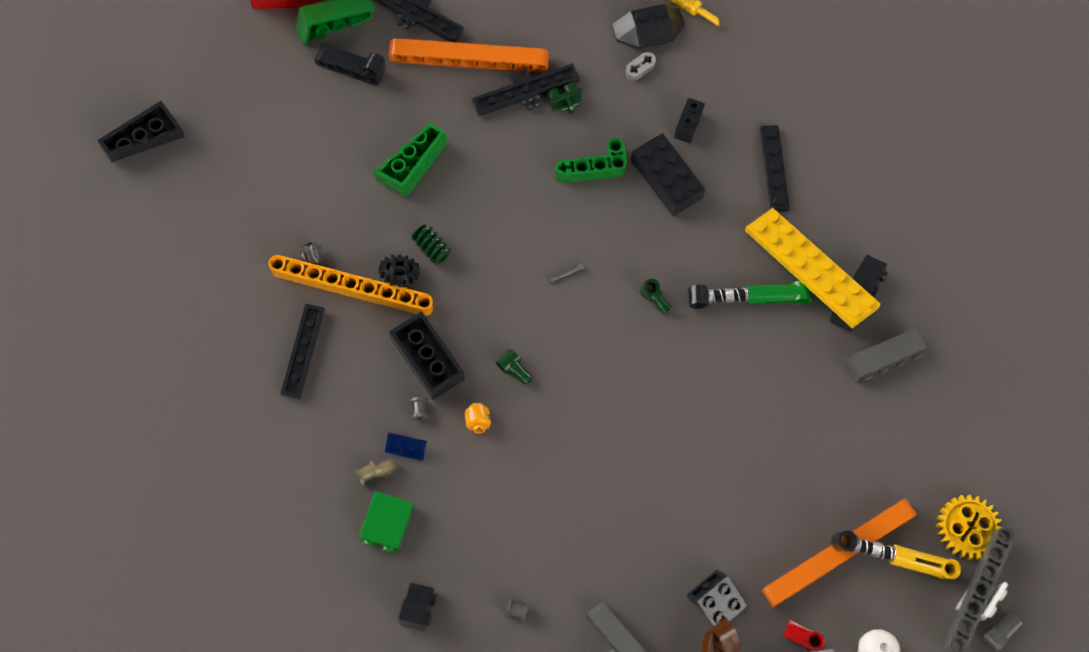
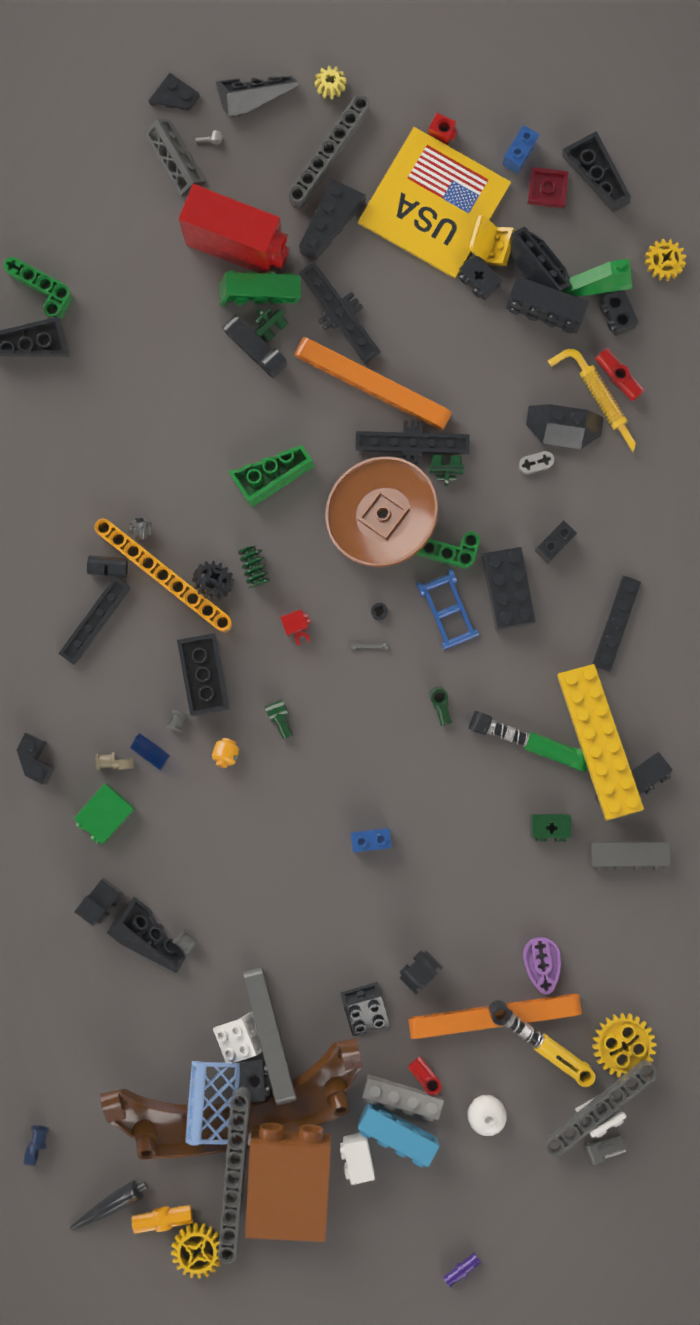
camera: 30 degrees right, 15 degrees up
(108, 80) = (37, 283): none -> green beam
(294, 297) = (107, 566): none -> black pin
(301, 506) = (28, 754): none -> black brick
(360, 35) = (276, 318): none -> dark green hips
(467, 620) = (142, 934): none -> black wedge
(492, 279) = (296, 623): none -> red brick
(513, 134) = (365, 492): none -> dark orange dish
(558, 244) = (373, 613): none -> black bush
(614, 187) = (451, 579): none -> blue piece
(649, 439) = (371, 840): none -> blue brick
(752, 538) = (420, 972): none -> black brick
(812, 353) = (539, 822): none -> dark green brick
(858, 499) = (552, 959): none -> medium lavender piece

